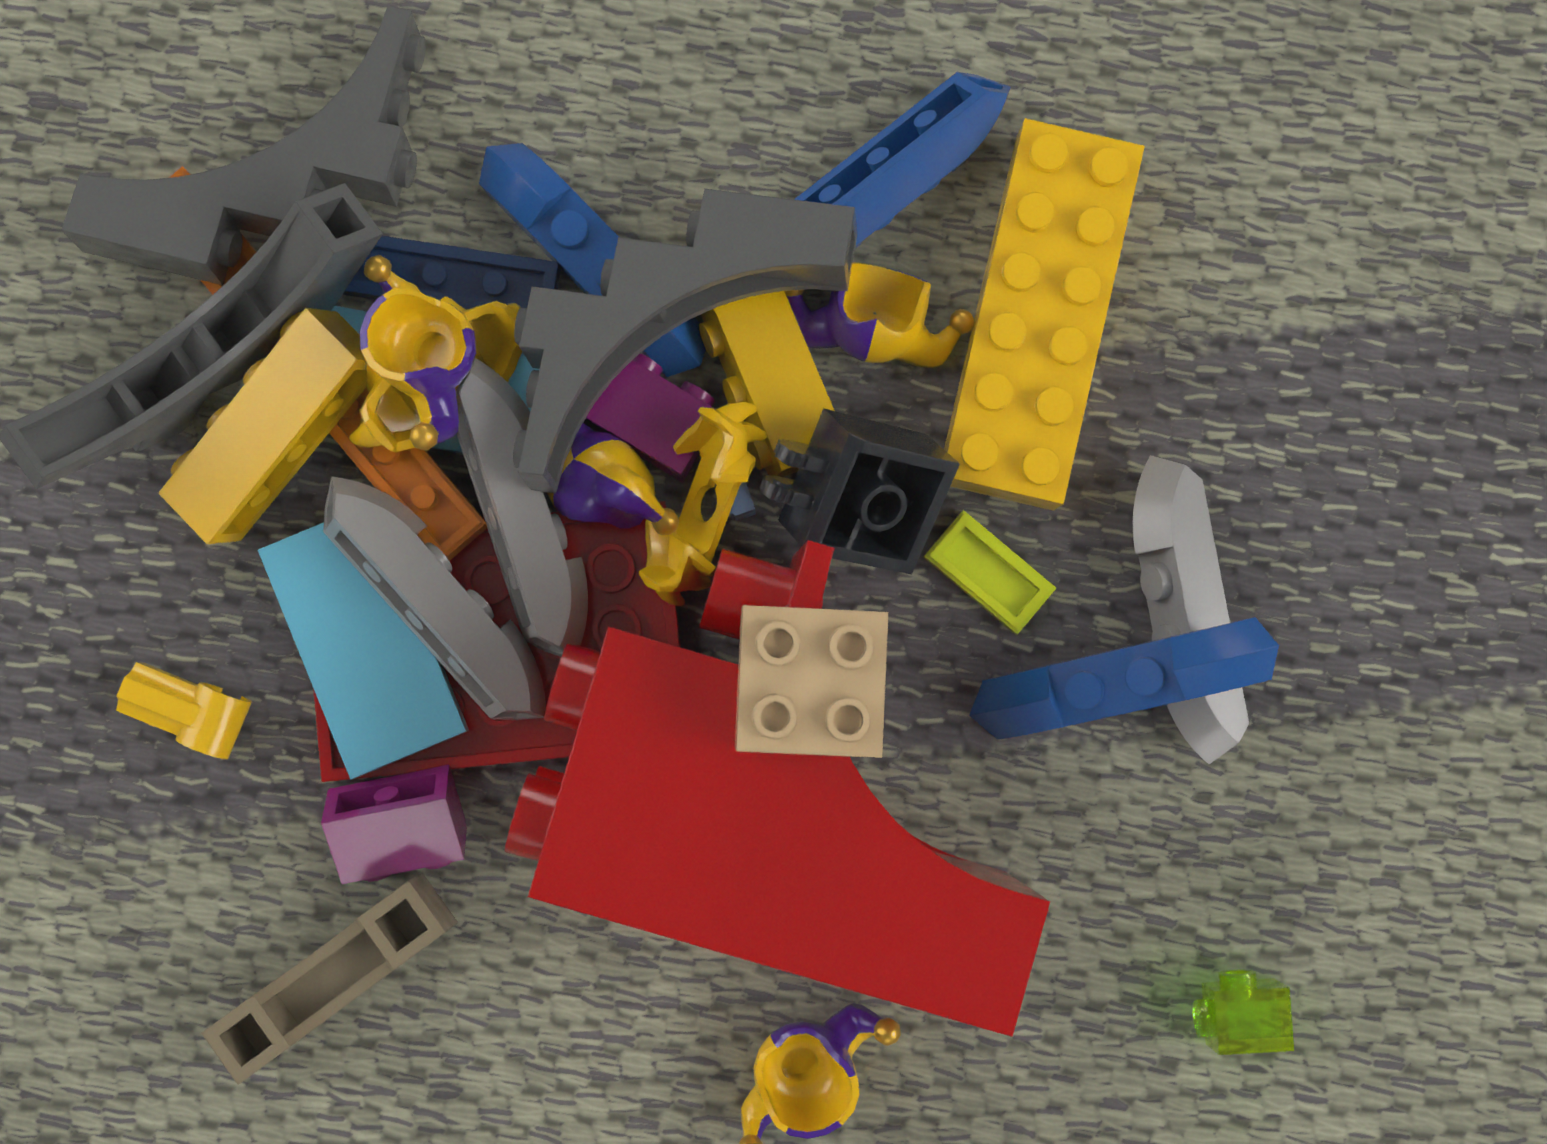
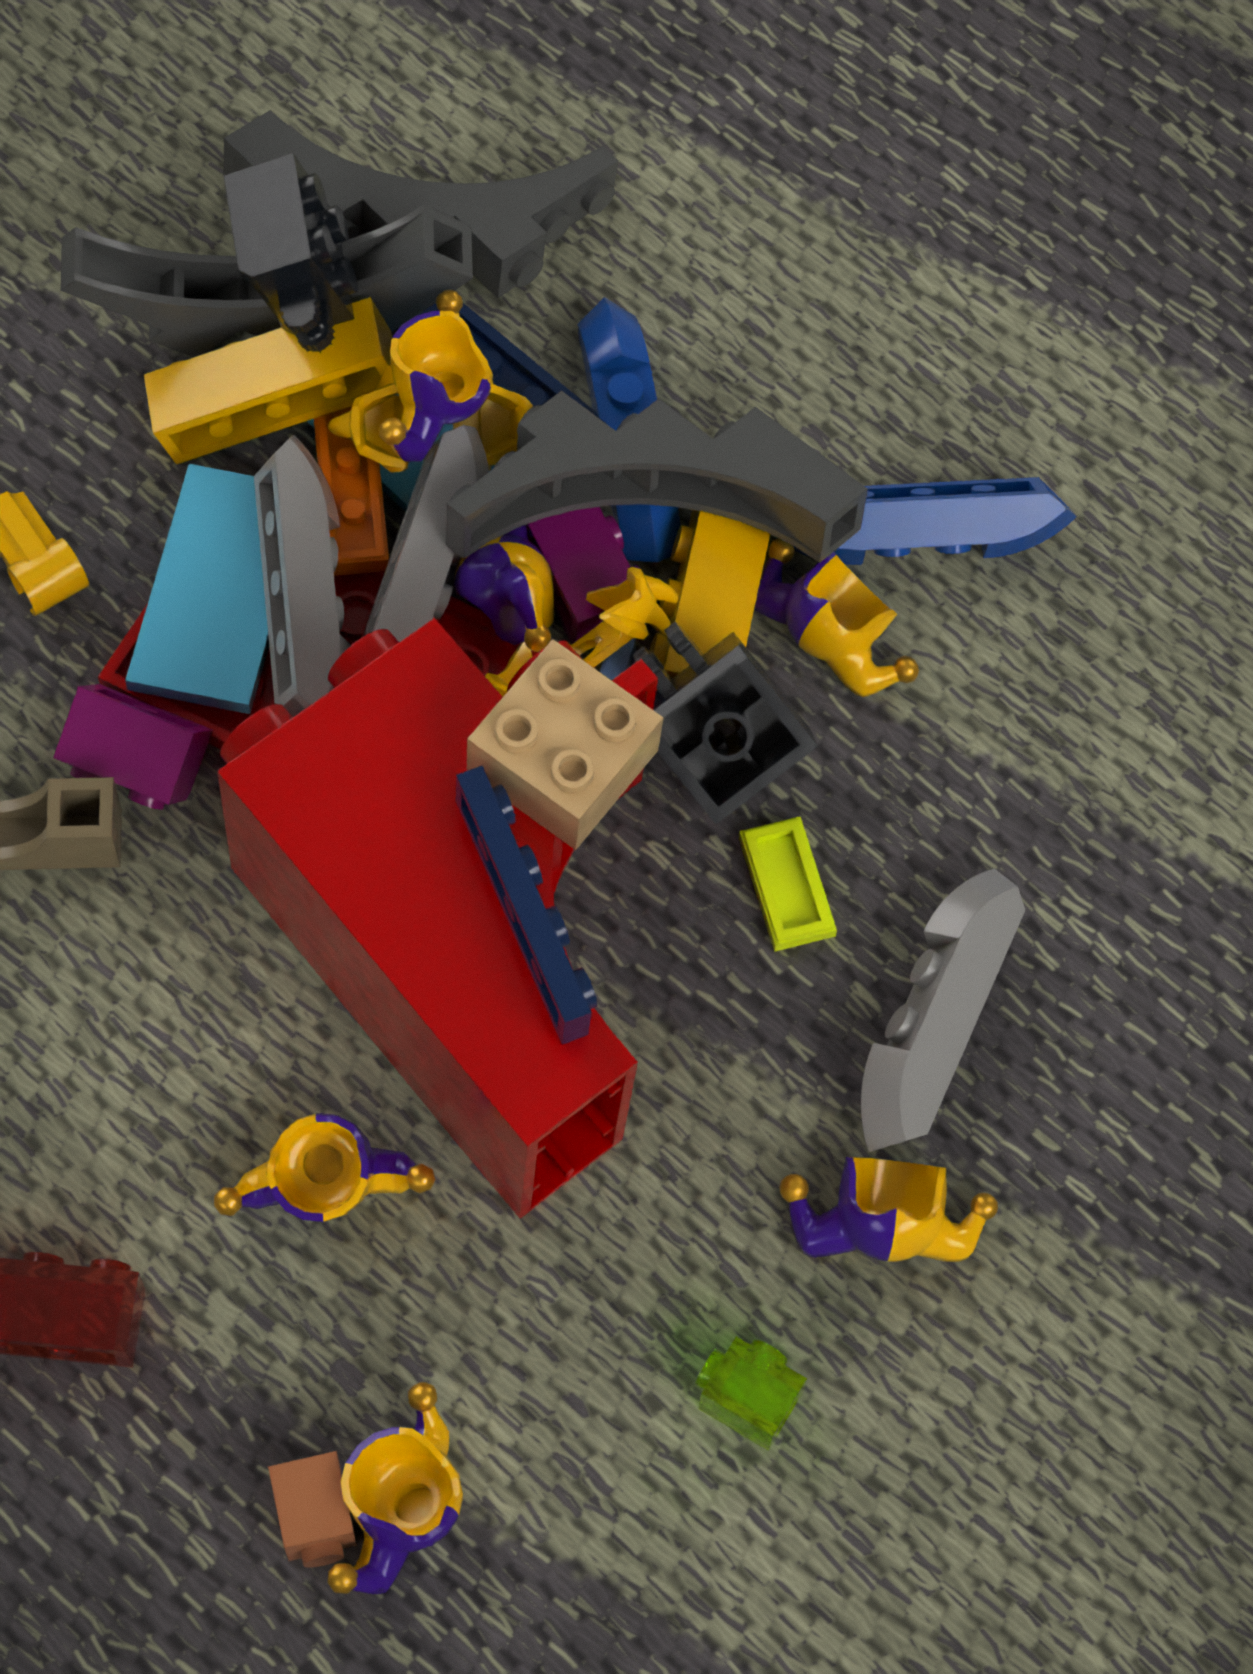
camera: 30 degrees right, 20 degrees down
(211, 323) = (292, 248): none -> black hinge
(902, 860) = (537, 929): none -> dark blue plate
(1041, 313) = (972, 702): yellow brick -> none
(1126, 679) = (840, 1020): blue brick -> none
(1266, 809) = (909, 1228): none -> piece

